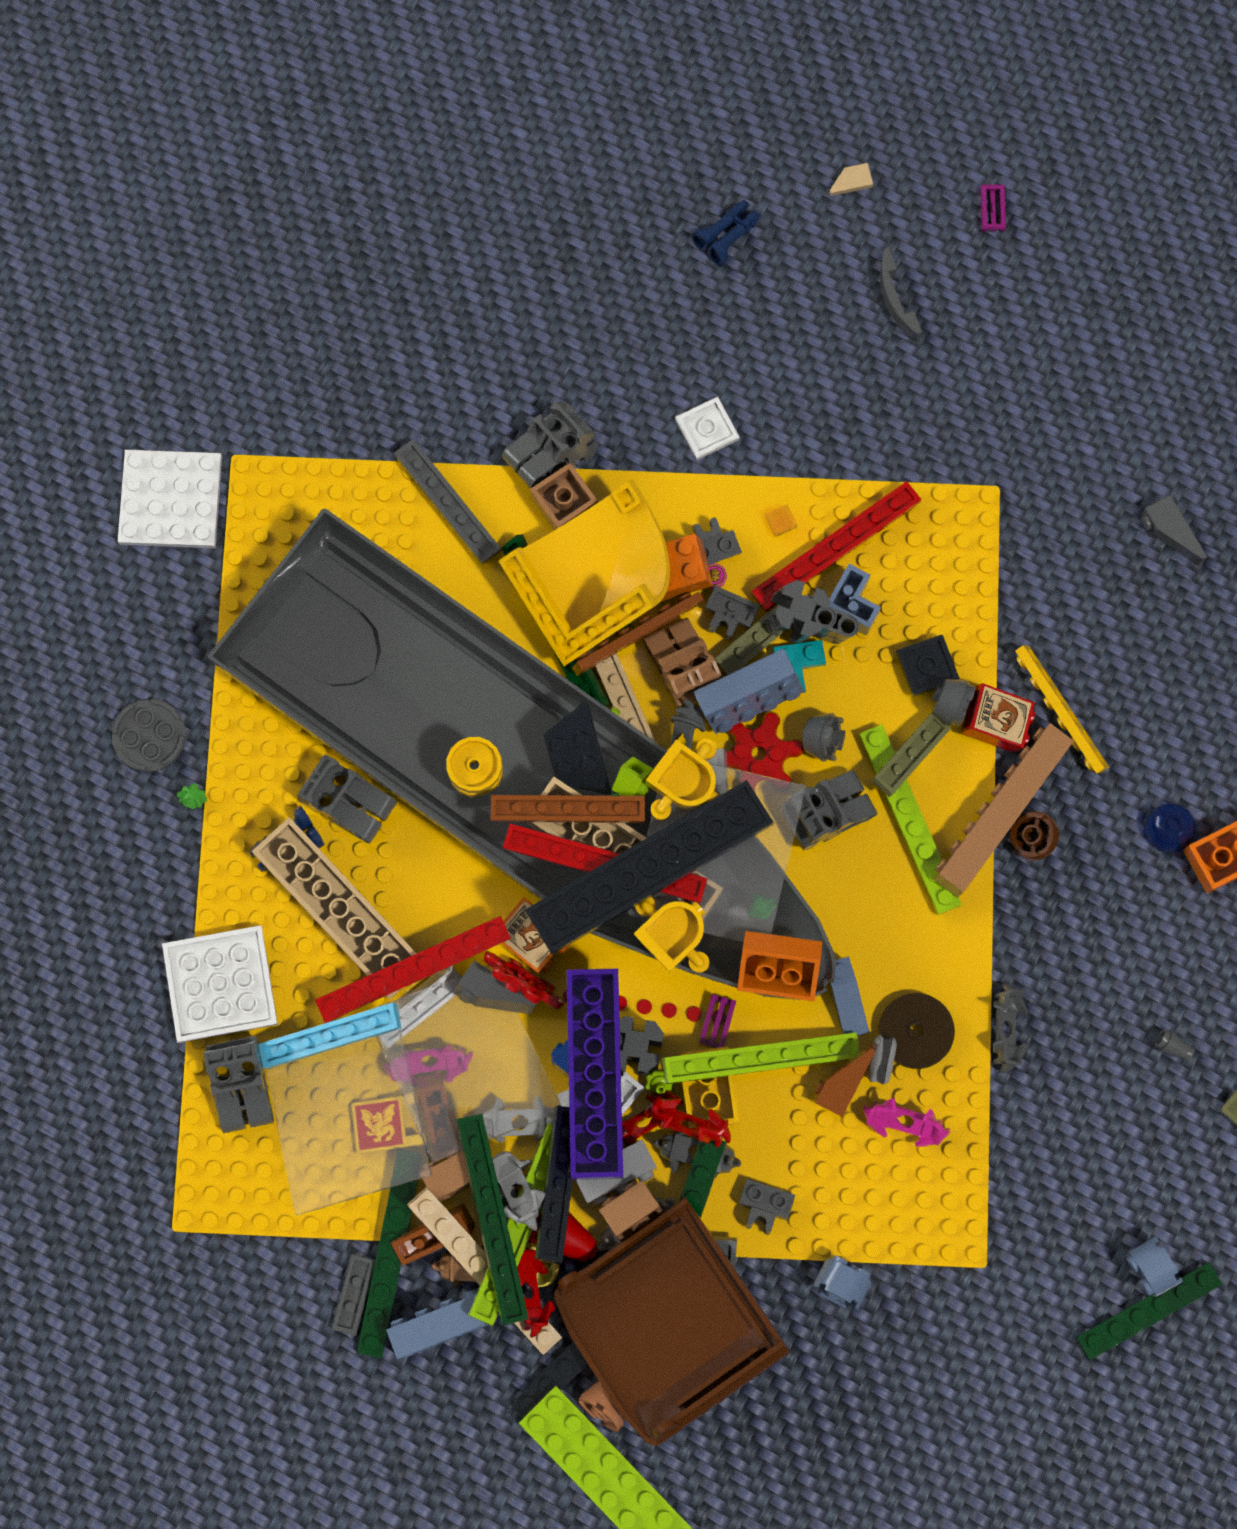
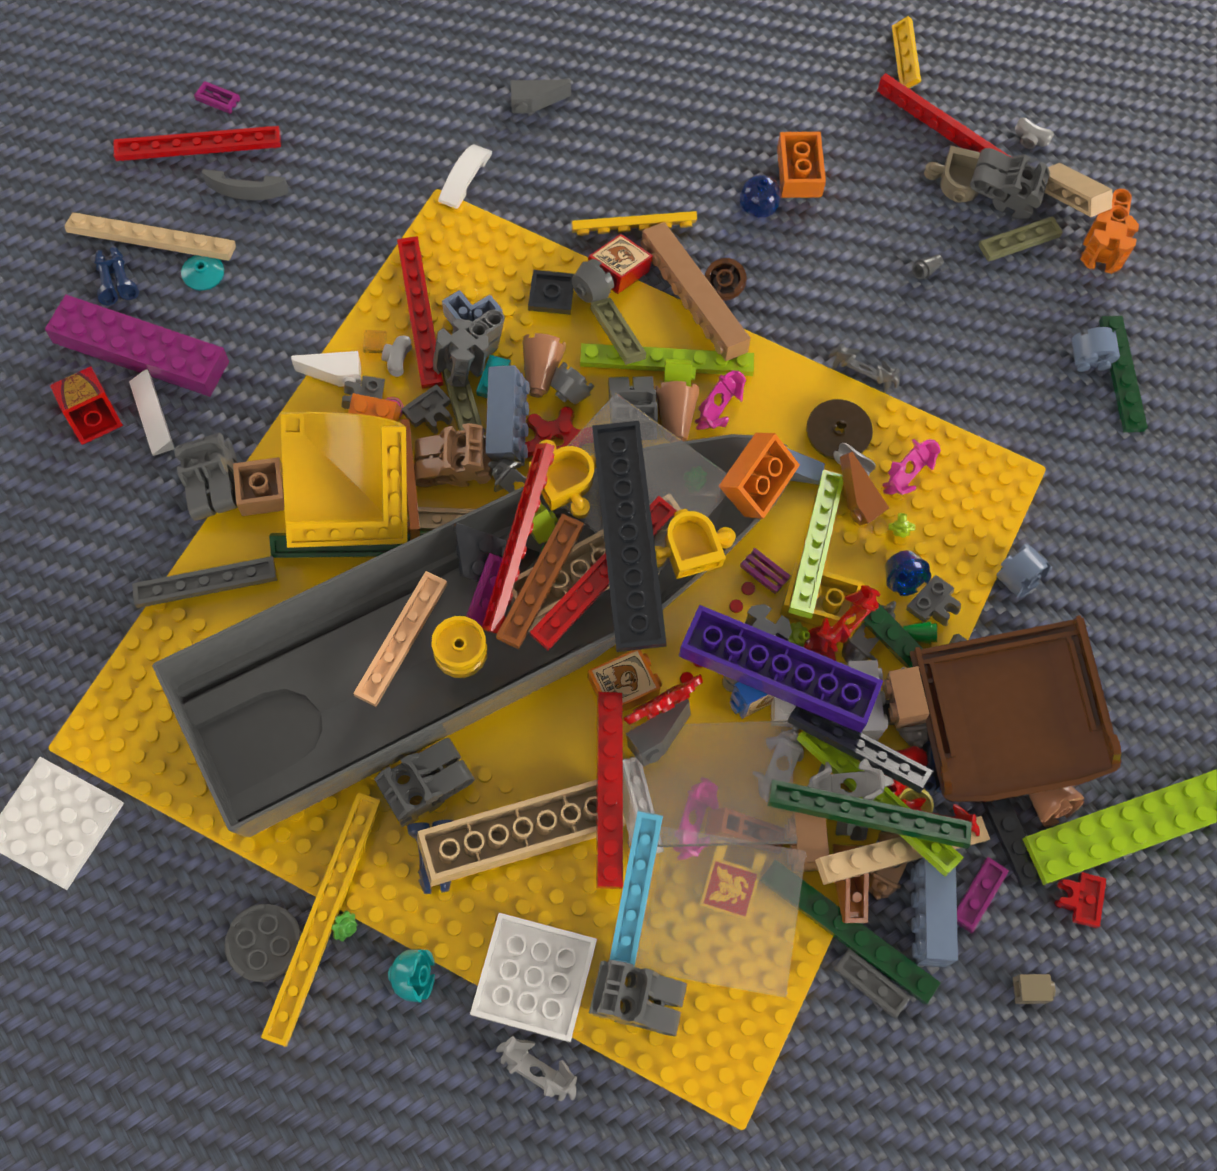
camera: 70 degrees left, 10 degrees down
(144, 1006) = (555, 1081): none -> light grey piece
(174, 878) = (411, 975): none -> teal cylinder
(190, 773) = (320, 920): none -> yellow plate
(412, 1448) = (1033, 989): none -> dark tan brick
(461, 709) = (400, 639): none -> light nougat plate
(484, 1365) = (980, 894): none -> magenta tile
(525, 1468) = (1084, 898): none -> red plate
(542, 766) = (484, 589): none -> magenta tile
(573, 290) = (86, 405): none -> red slope
(598, 354) = (151, 413): none -> white slope
(605, 766) = (520, 530): none -> red plate
(661, 300) = (137, 345): none -> magenta brick
(707, 428) = (265, 363): white tile -> none
(724, 1205) = (923, 632): none -> green cone
(730, 504) = (330, 367): none -> white slope
(774, 548) = (396, 354): none -> light grey piece
(778, 1162) = (906, 572): none -> clear blue cone
(779, 321) = (203, 278): none -> teal dish
(790, 240) = (150, 236): none -> tan plate
(832, 1139) = (901, 526): none -> lime plant
(835, 694) = (541, 358): none -> nougat cone
(847, 855) = (677, 406): none -> nougat cone
(852, 179) = (131, 174): tan tile -> none
(867, 890) = (729, 386): none -> dark pink piece
(894, 837) = (679, 370): none -> lime brick
(923, 222) = (197, 143): none -> red plate
(1029, 505) = (462, 174): none -> white slope

